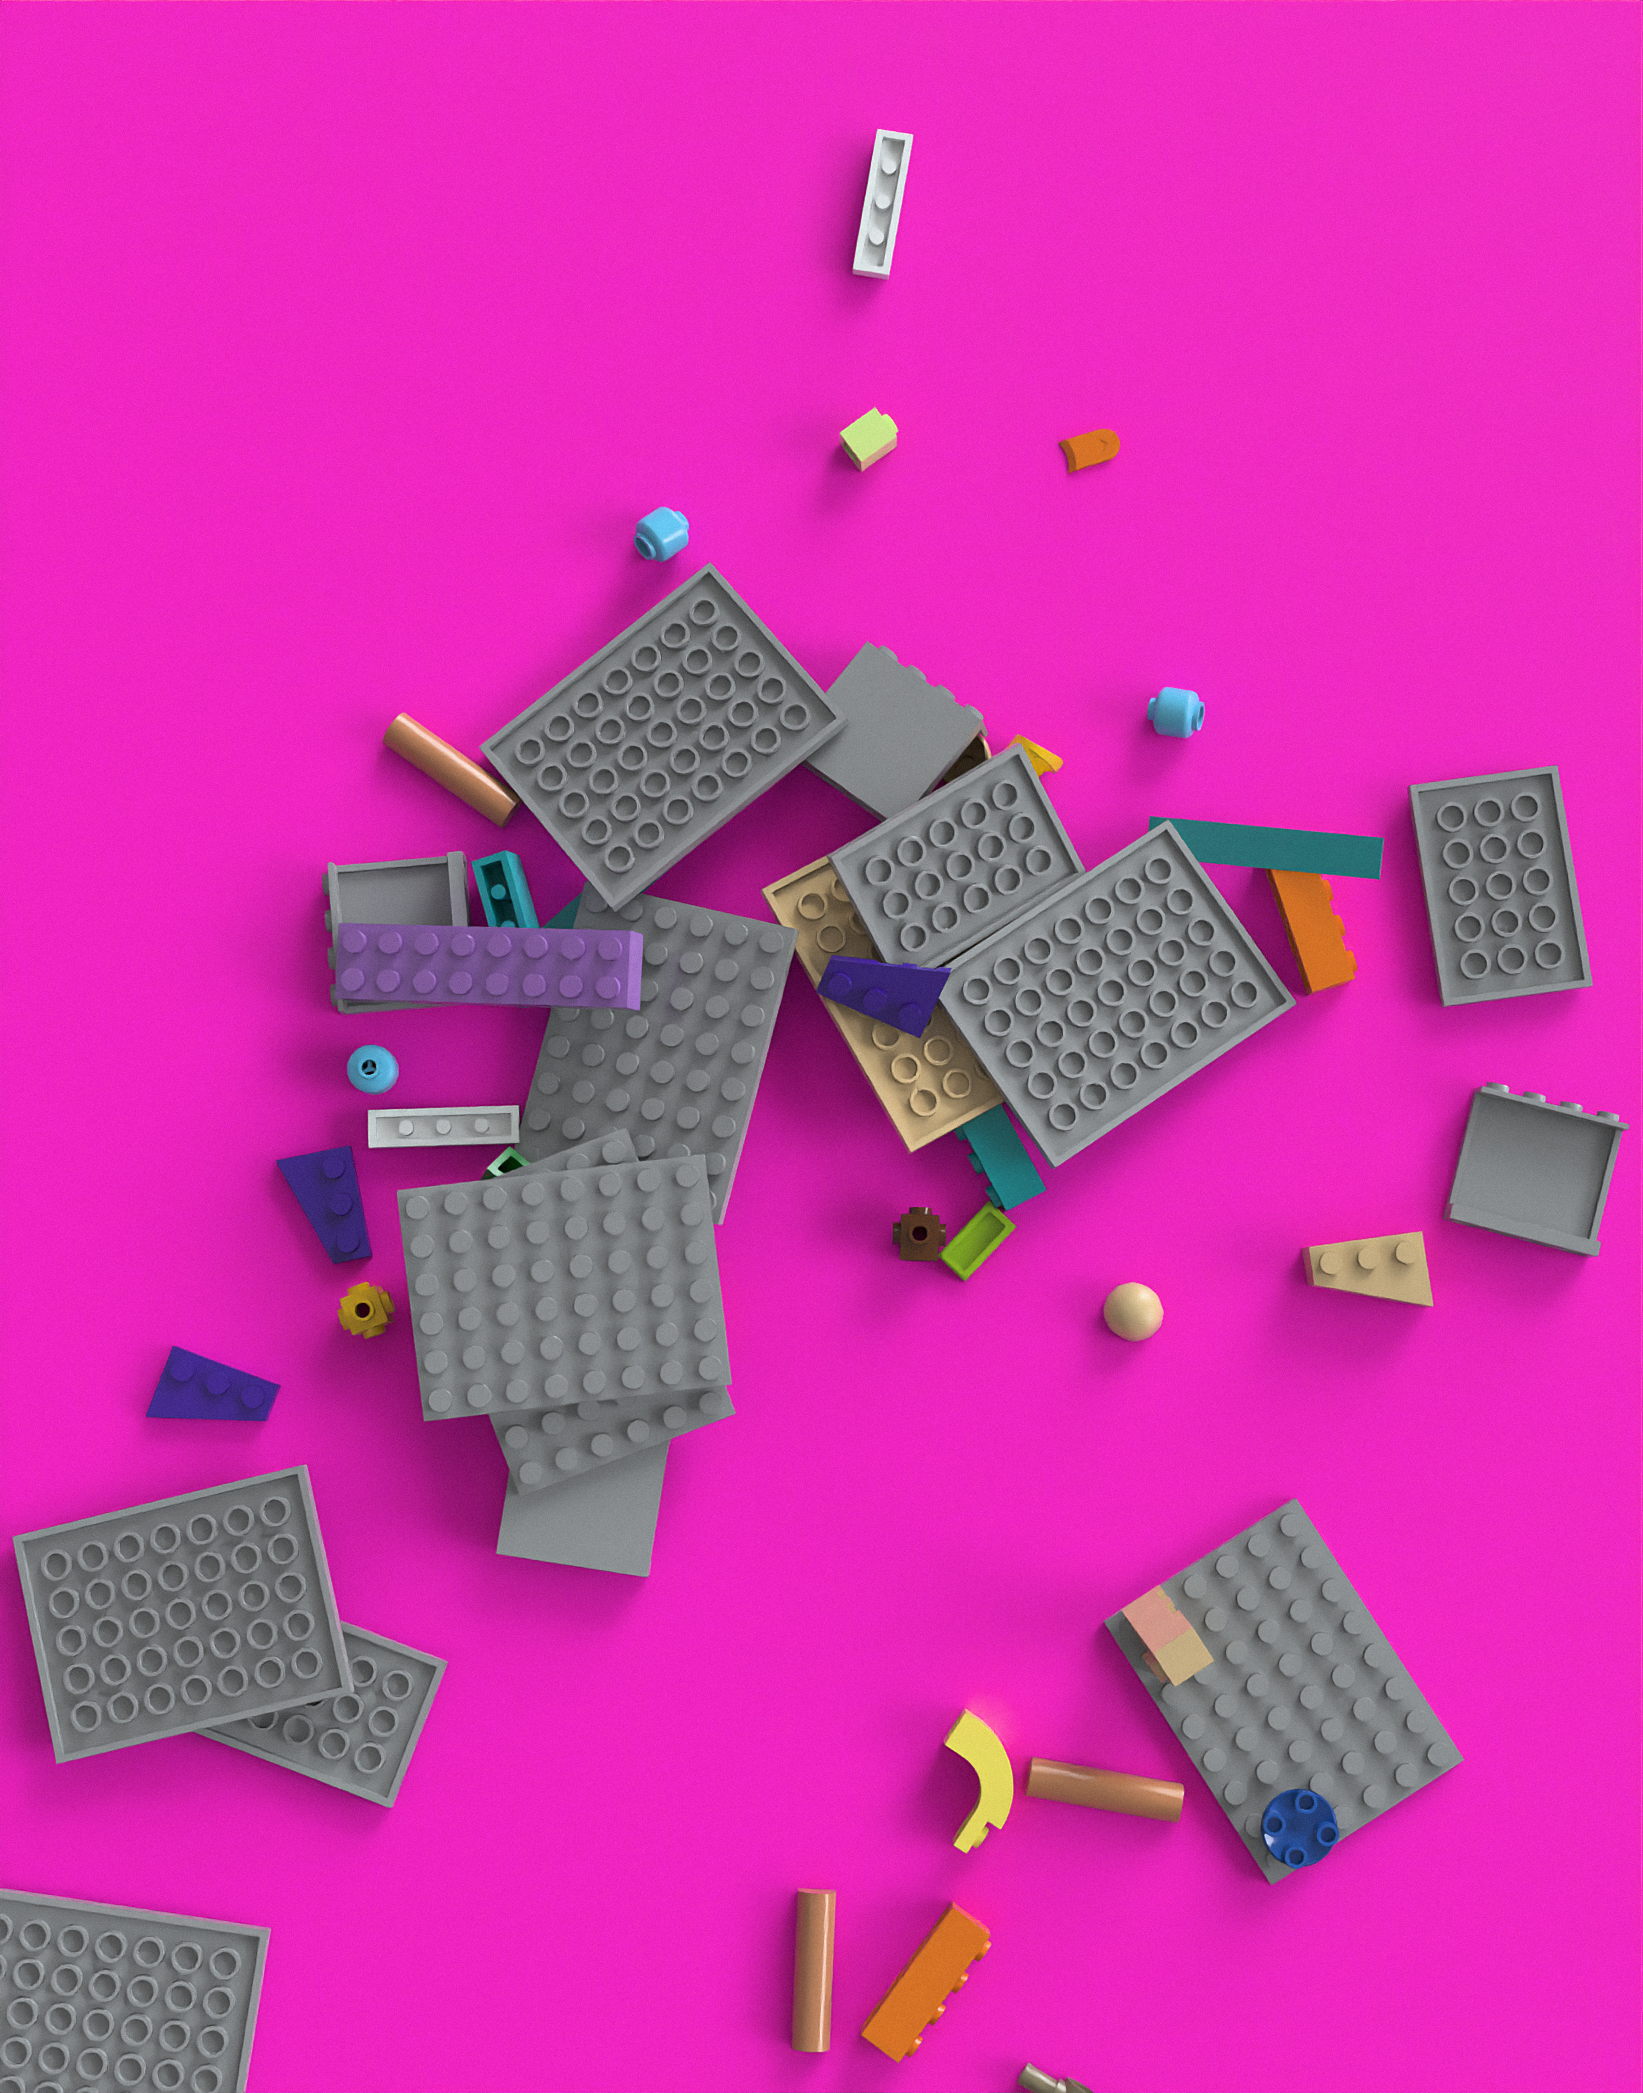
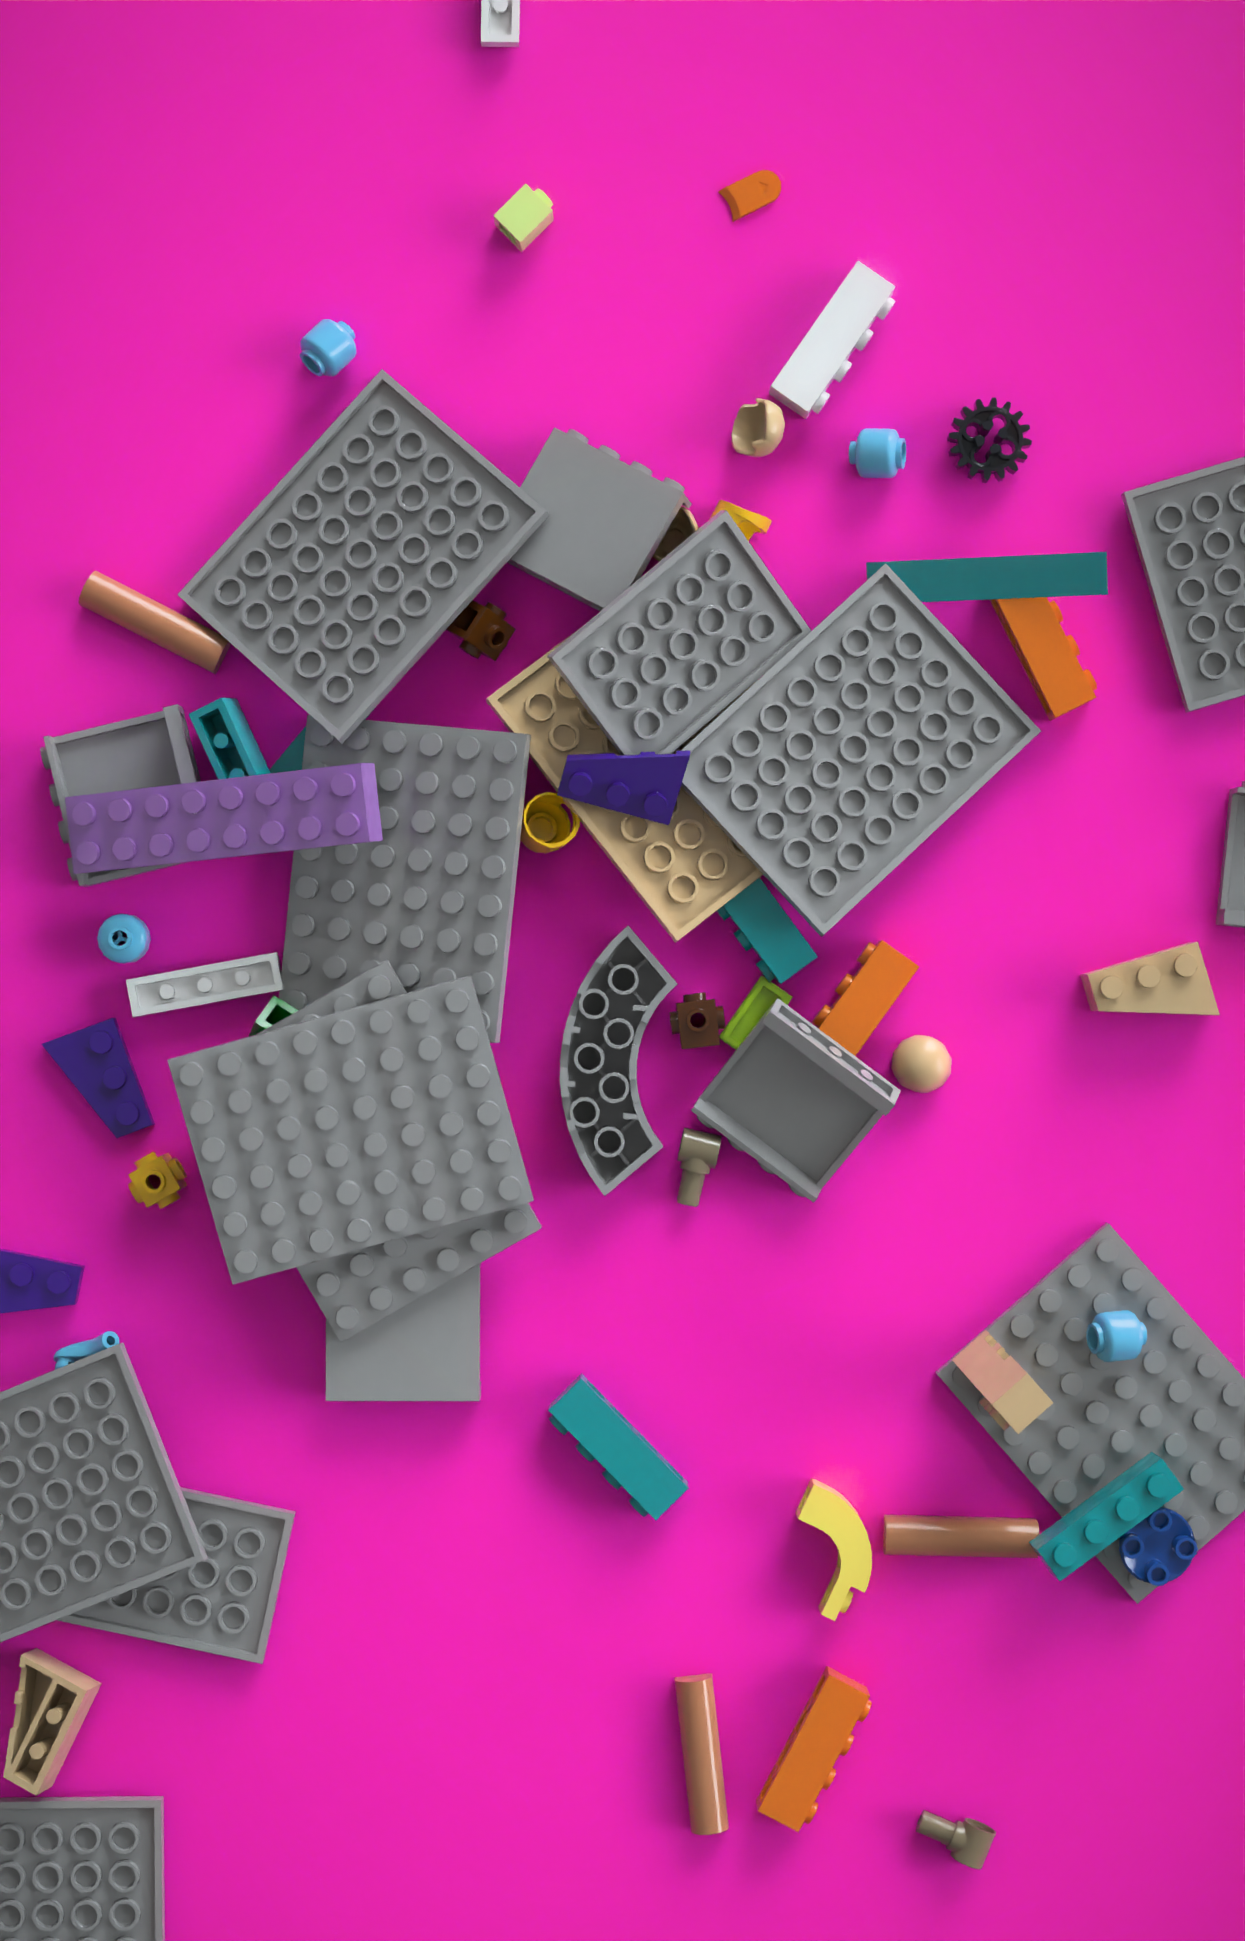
camera: 15 degrees left, 5 degrees up
(169, 1830) = (46, 1720): none -> tan wedge
(265, 1466) = (84, 1349): none -> medium azure arm
(767, 824) = (482, 630): none -> reddish brown brick
(777, 1646) = (618, 1447): none -> teal brick
(789, 1025) = (537, 830): none -> yellow helmet
(820, 1258) = (602, 1057): none -> light grey brick
(899, 1369) = (697, 1156): none -> dark tan pin
(1003, 1327) = (795, 1100): none -> light grey panel
(1063, 672) = (758, 428): none -> tan hair
(1074, 1252) = (865, 996): none -> orange brick
(1148, 598) = (832, 339): none -> white brick
(1252, 1789) = (1106, 1516): none -> teal brick
(1281, 695) = (1011, 434): none -> black gear
(1287, 1610) = (1116, 1336): none -> medium azure head

